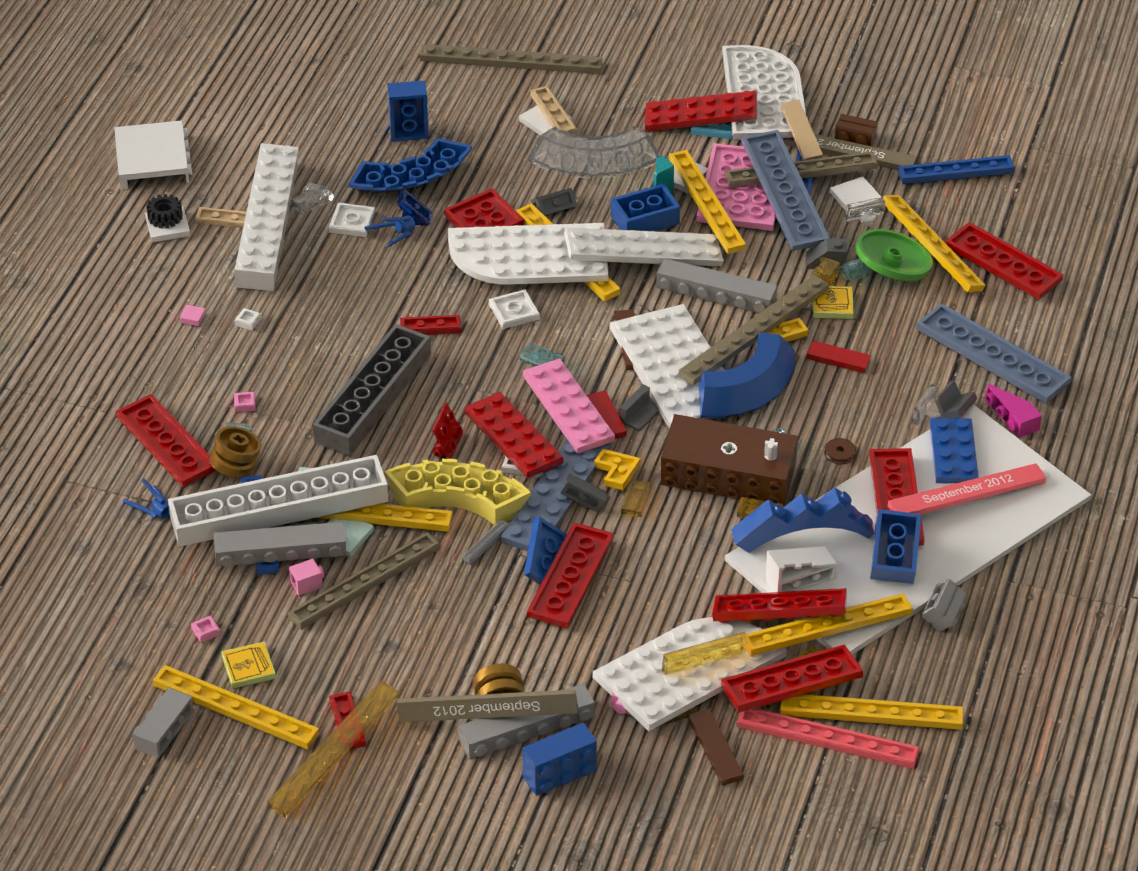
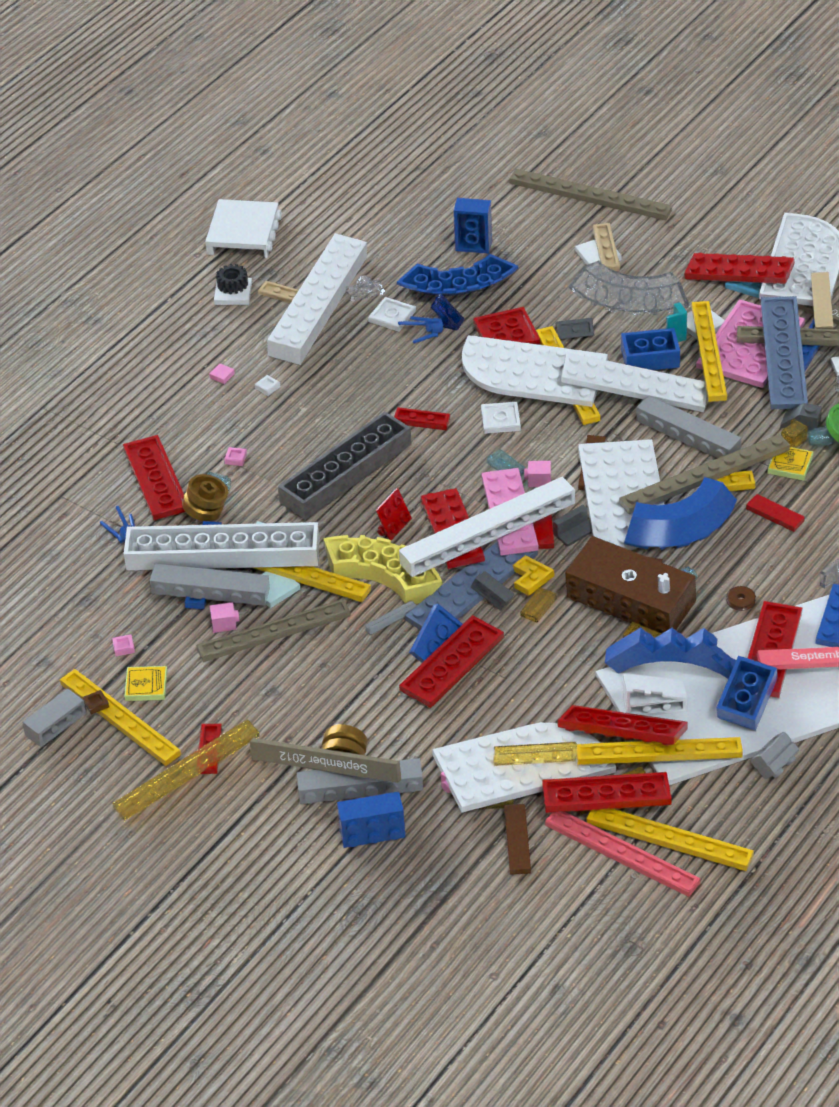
camera: 20 degrees right, 0 degrees up
(205, 696) = (95, 702): none -> reddish brown tile
(556, 426) = (486, 526): none -> white brick
(581, 361) = (538, 473): none -> bright pink brick

